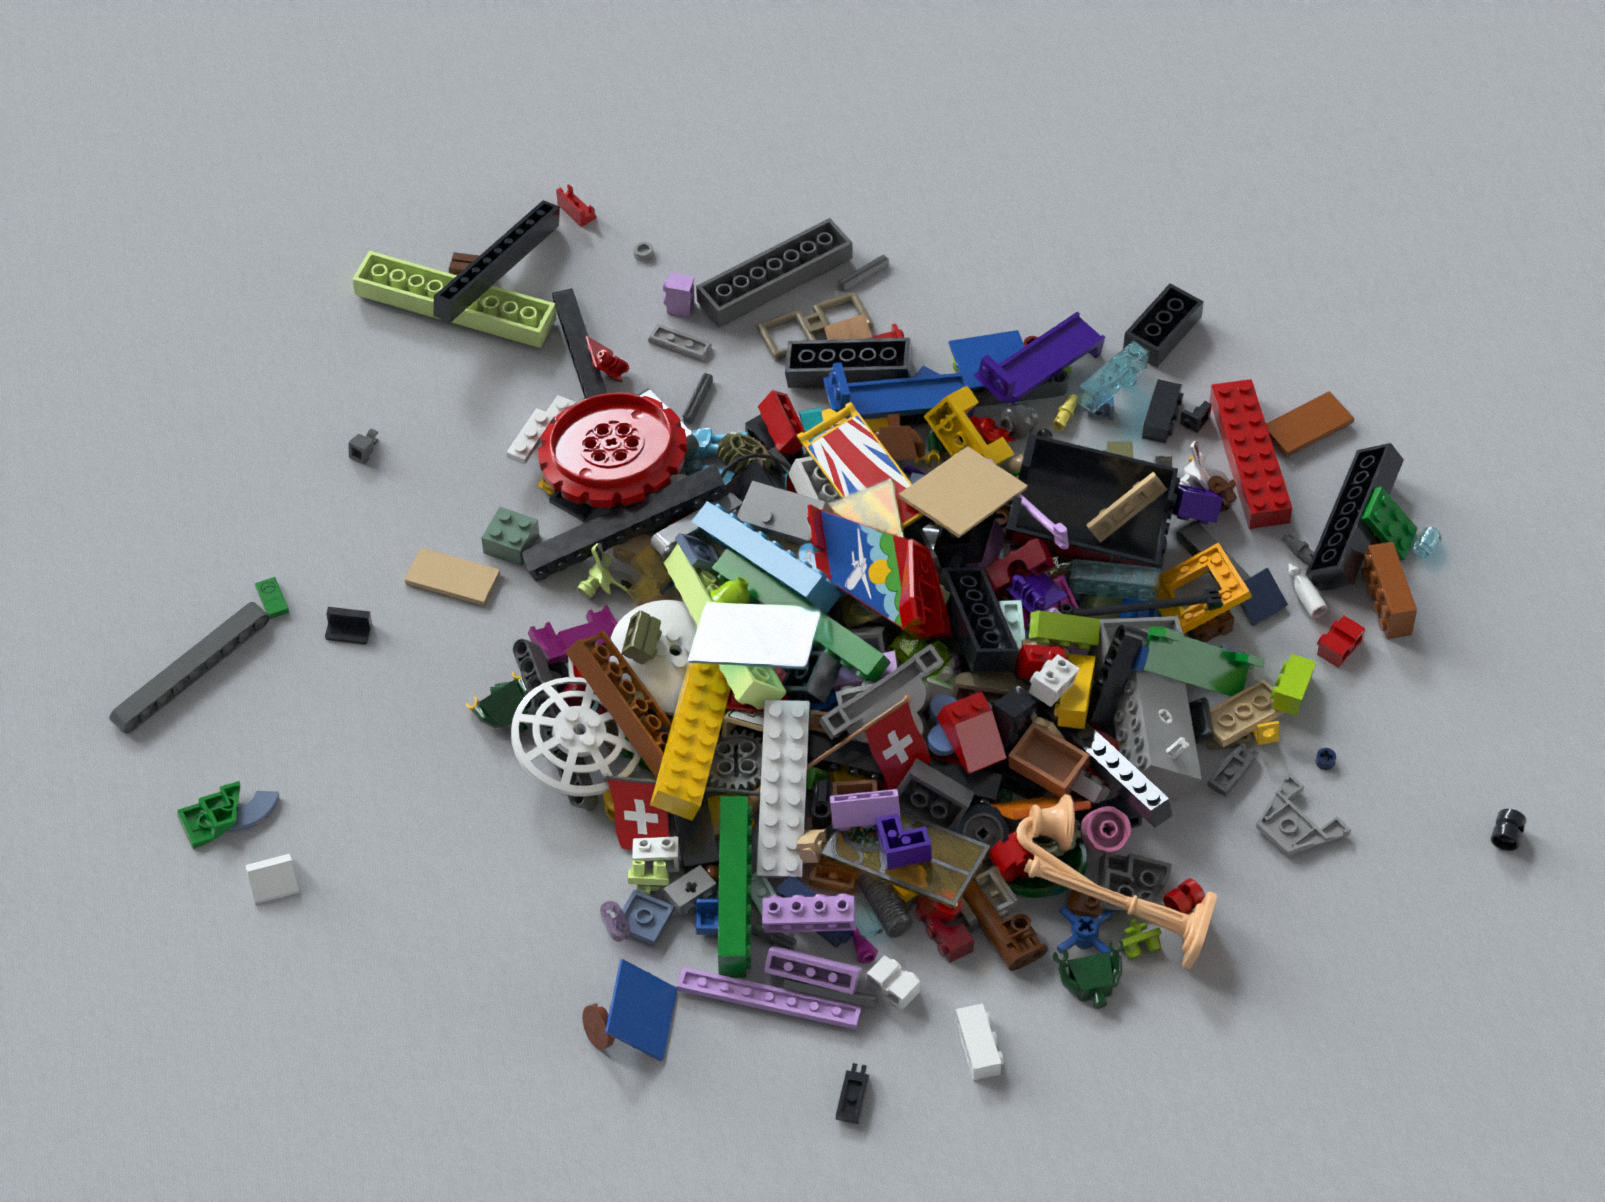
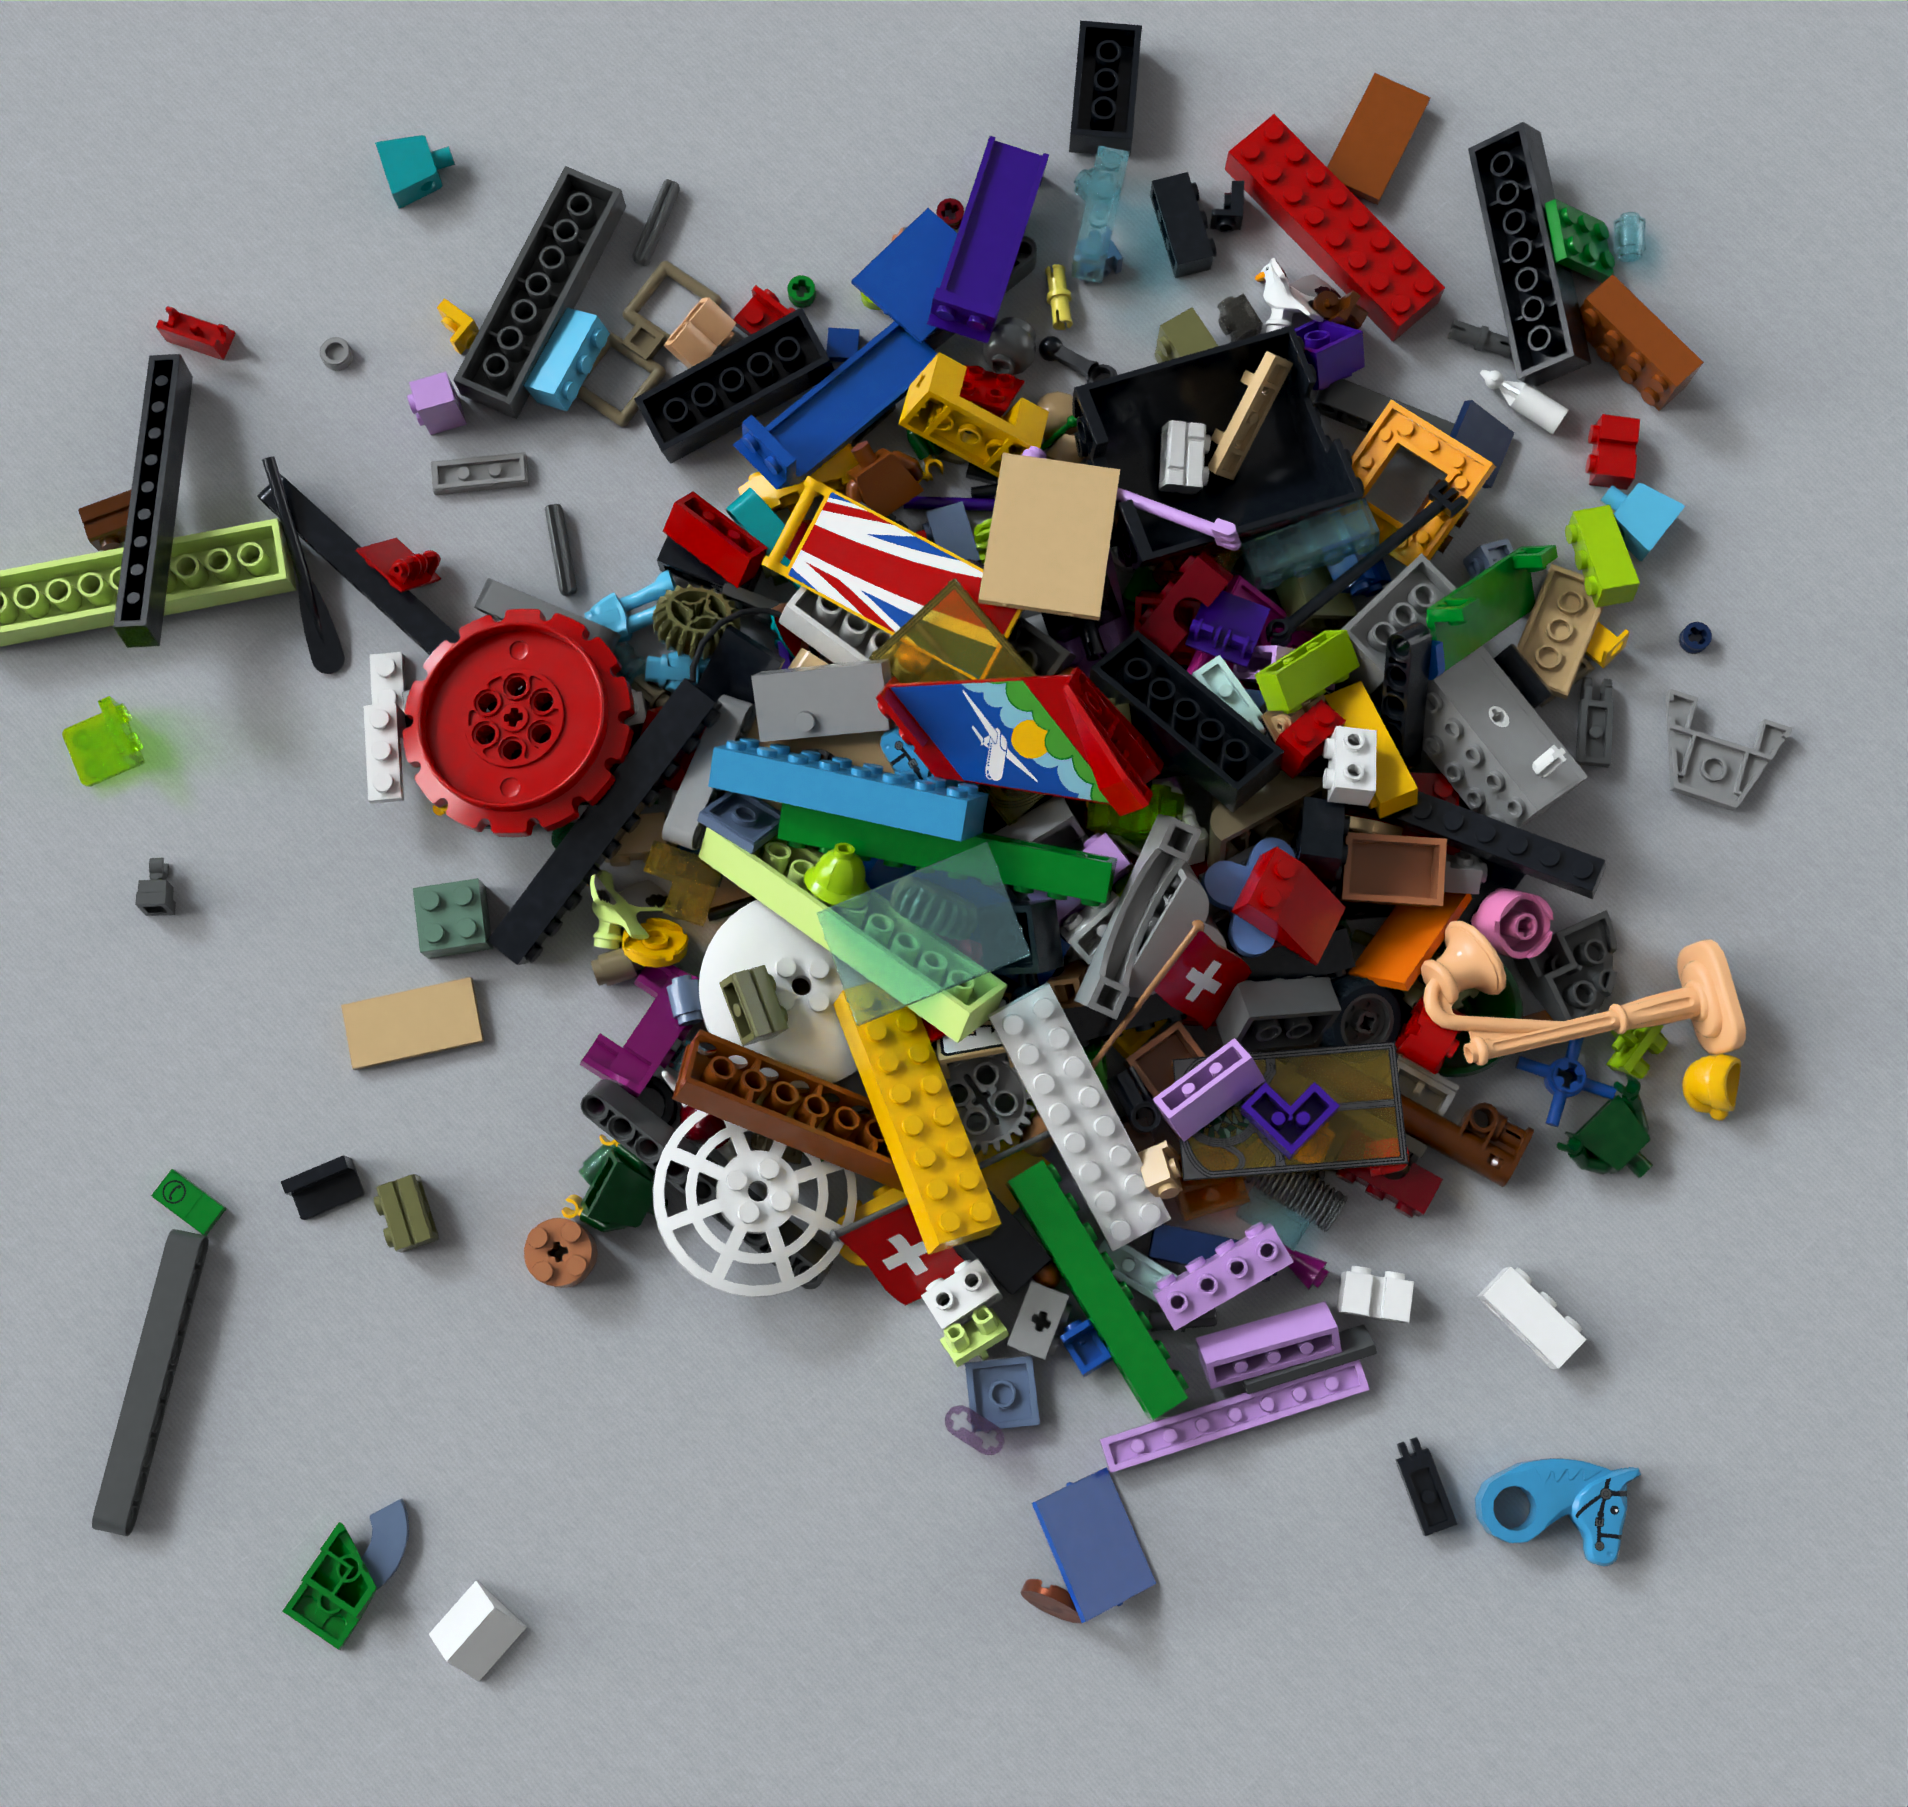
camera: 30 degrees left, 25 degrees up
(382, 660) = (406, 1213): none -> olive brick
(387, 367) = (104, 744): none -> clear neon green bracket
(451, 719) = (545, 1240): none -> nougat brick
(540, 368) = (317, 623): none -> black piece
(581, 603) = (614, 968): none -> dark tan brick
(607, 623) = (685, 1000): none -> sand blue brick
(614, 602) = (663, 947): none -> yellow tile
(718, 264) = (459, 324): none -> yellow bracket
(747, 185) = (412, 167): none -> teal torso
(766, 309) = (567, 359): none -> medium azure brick
(919, 337) = (794, 284): none -> green bush
(930, 1134) = (1562, 1487): none -> dark azure animal
(1076, 510) = (1183, 457): none -> white brick
(1173, 981) = (1712, 1085): none -> yellow piece
(1184, 897) = (1653, 965): red wheel -> none
(1334, 681) = (1642, 516): none -> medium azure torso

